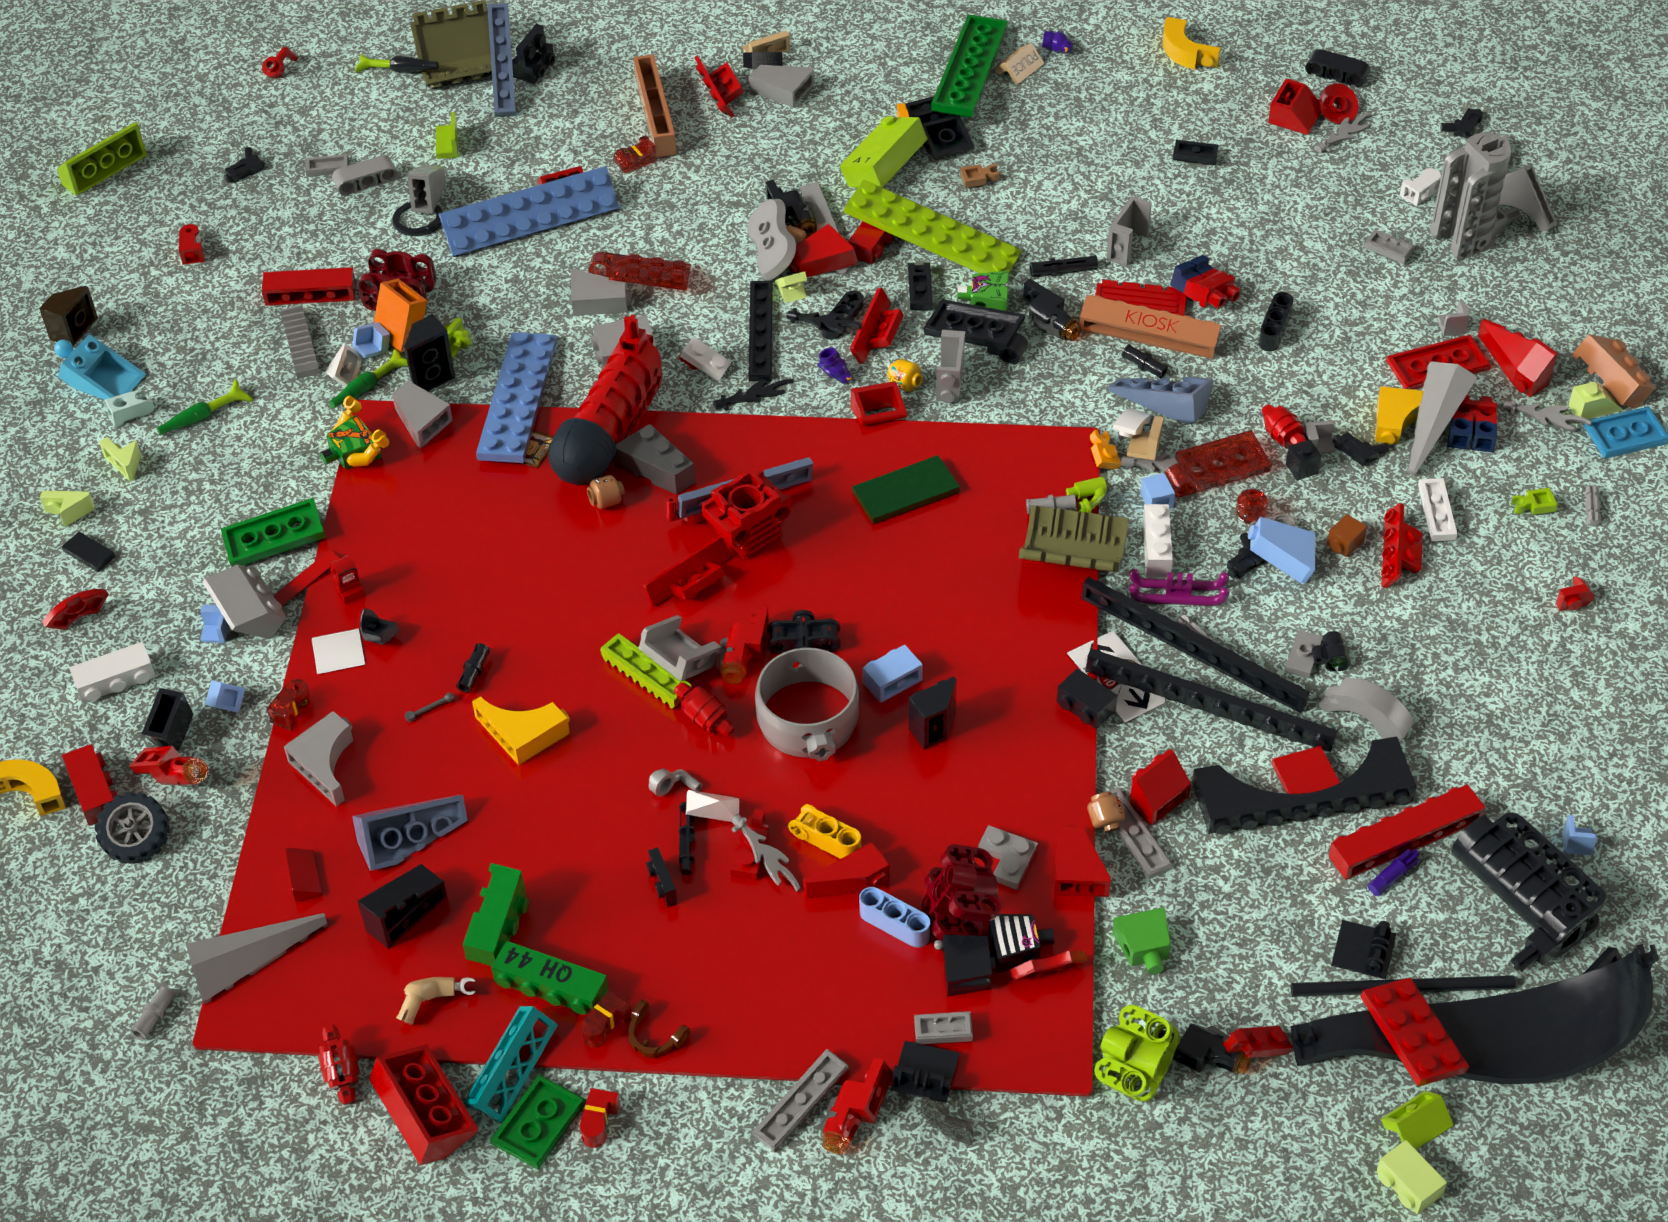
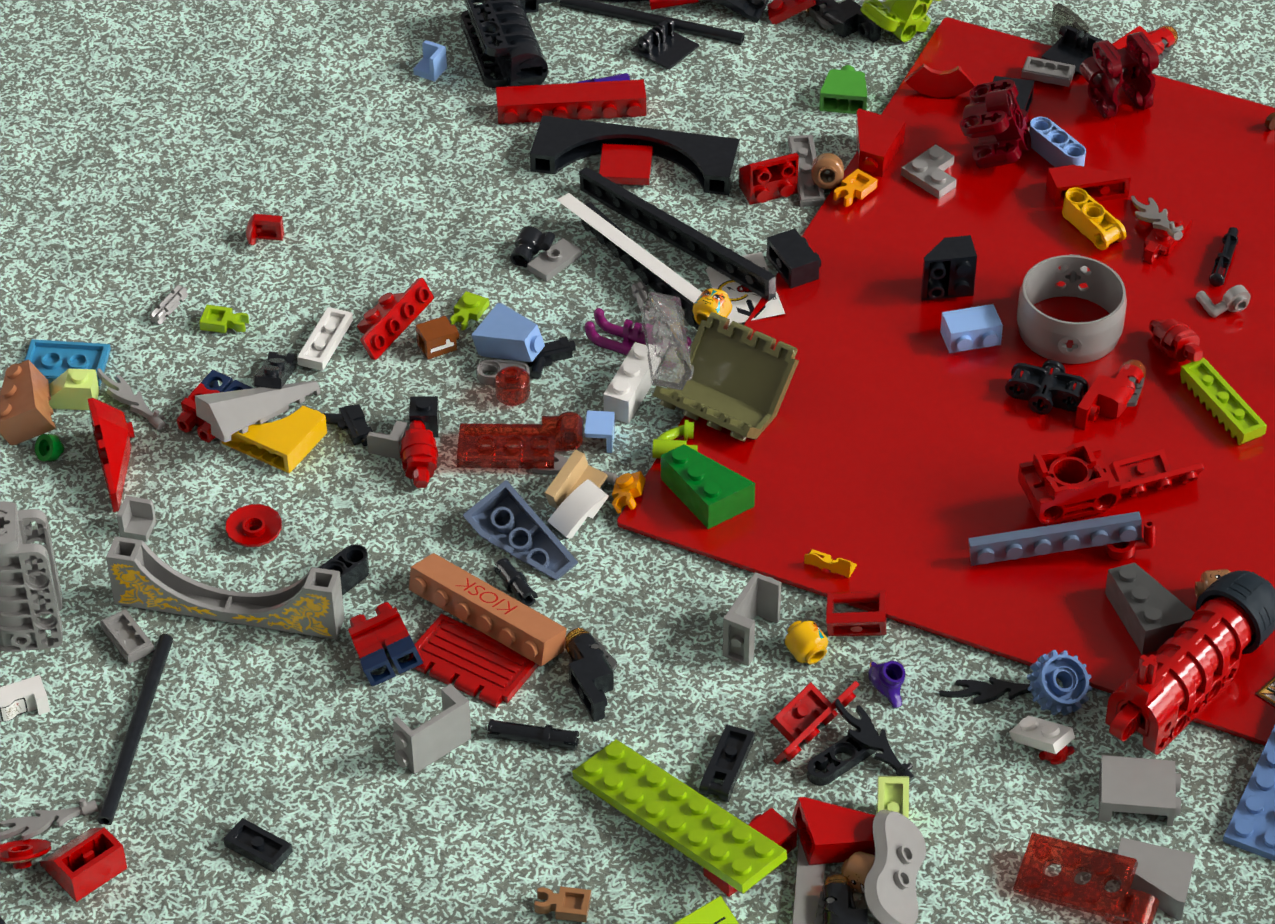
camera: 160 degrees left, 5 degrees down
(664, 886) = (1258, 226): black plate -> none
(676, 650) = (1183, 398): light grey panel -> none
(704, 391) = (1049, 693): none -> medium blue gear
(711, 805) = (1192, 264): white slope -> none
(760, 331) = (954, 770): black tile -> none
(800, 1100) = (1190, 66): light grey tile -> none
(870, 1002) = (1125, 67): none -> dark red piece
(904, 431) = (838, 566): none -> yellow piece
(905, 489) = (870, 509): dark green tile -> none
(987, 290) = (650, 720): bright green torso -> none
(1001, 342) = (670, 639): black hinge -> none
(1017, 940) = (950, 103): black torso -> none
(1043, 456) = (706, 486): none -> green wedge
(1061, 502) = (722, 443): light grey pin -> none
(1070, 804) = (855, 185): none -> light orange plate
(1120, 589) = (711, 301): none -> yellow head
(1140, 550) = (666, 341): none -> clear wedge
(1234, 653) = (630, 247): none -> white sticker
(1333, 199) = (135, 730): none -> black piece
(1342, 582) = (469, 307): none -> lime plate
(1365, 341) = (253, 525): none -> red dish
(1373, 703) = (541, 185): light grey arch -> none
(1400, 266) = (146, 582): none -> light grey arch
(1411, 365) = (192, 488): red tile -> none
(1449, 458) = (275, 370): none -> black plate
(1566, 353) = (48, 447): none -> green tile

